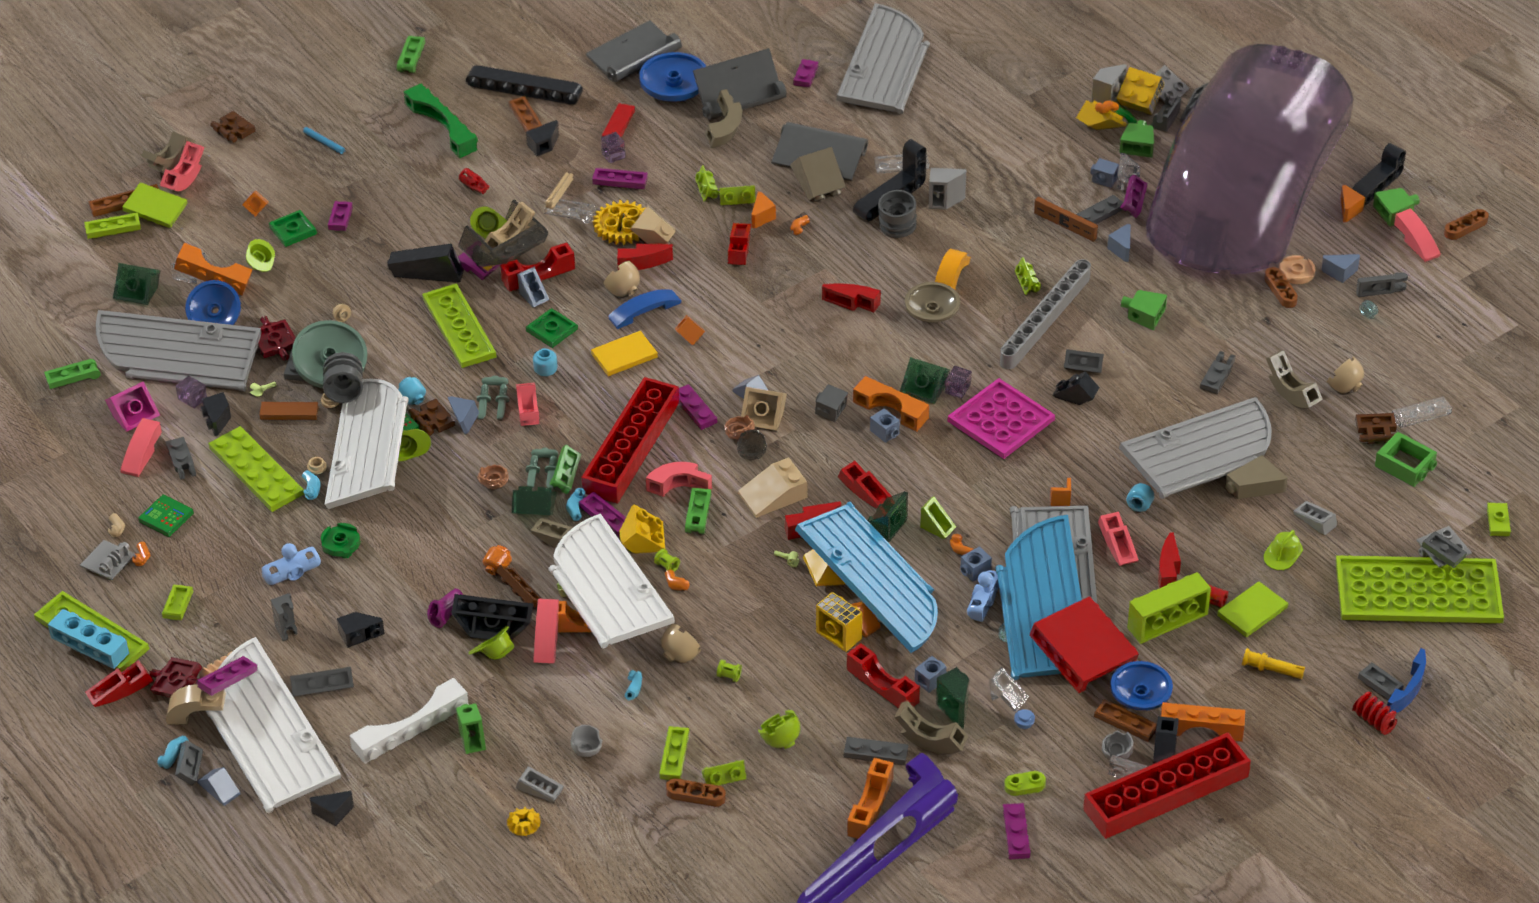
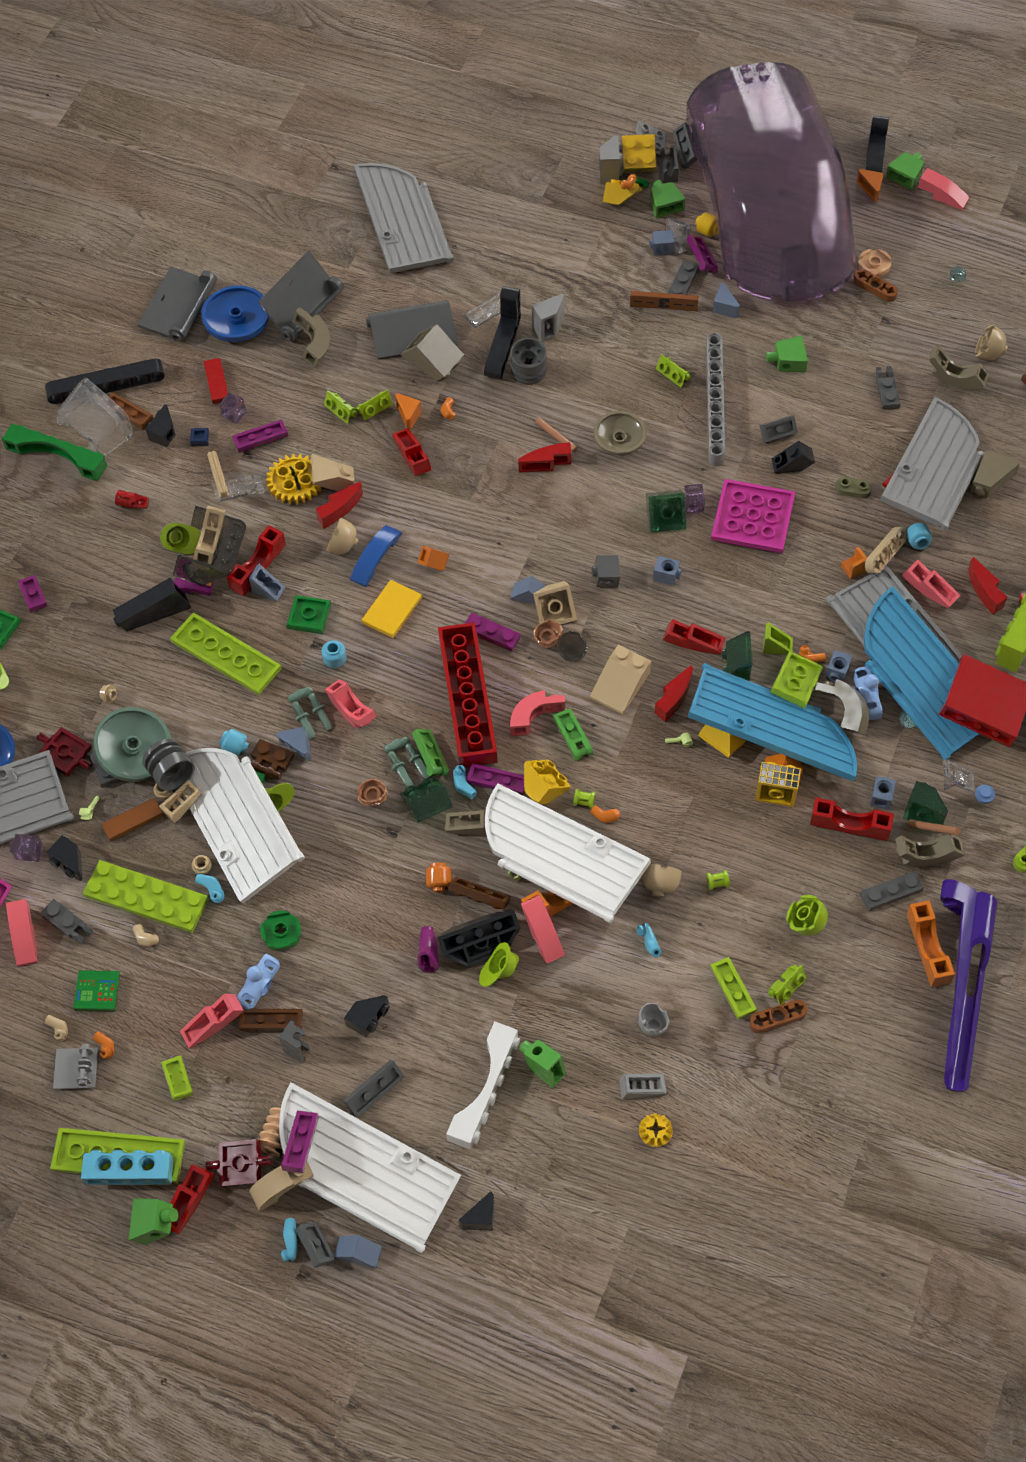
camera: 30 degrees left, 15 degrees up
(78, 683) = (151, 1220): none -> bright green torso
(230, 495) = (143, 938): none -> tan arm
(235, 573) = (211, 1019): none -> coral slope
(269, 590) = (269, 1019): none -> reddish brown plate
(333, 413) = (180, 810): none -> tan slope
(491, 108) = (95, 417): none -> clear windscreen
(570, 159) = (199, 437): none -> dark blue tile
(805, 73) = (343, 258): magenta plate -> none
(872, 394) = (677, 545): orange arch -> none
(878, 283) = (554, 433): none -> nougat bar
(928, 555) = (796, 679): none -> lime tile
(949, 715) = (934, 827): none -> nougat bar
(951, 267) = (610, 392): light orange arch -> none
(959, 594) = (856, 708): none -> arch
(1097, 490) = (886, 550): none -> tan beam
(1113, 434) = (854, 487): none -> olive plate
(1154, 172) = (706, 224): none -> yellow head
(1340, 266) = (907, 245): sand blue slope -> none
(1381, 284) = (950, 247): dark grey hinge -> none
(1476, 219) = (969, 157): dark orange beam -> none

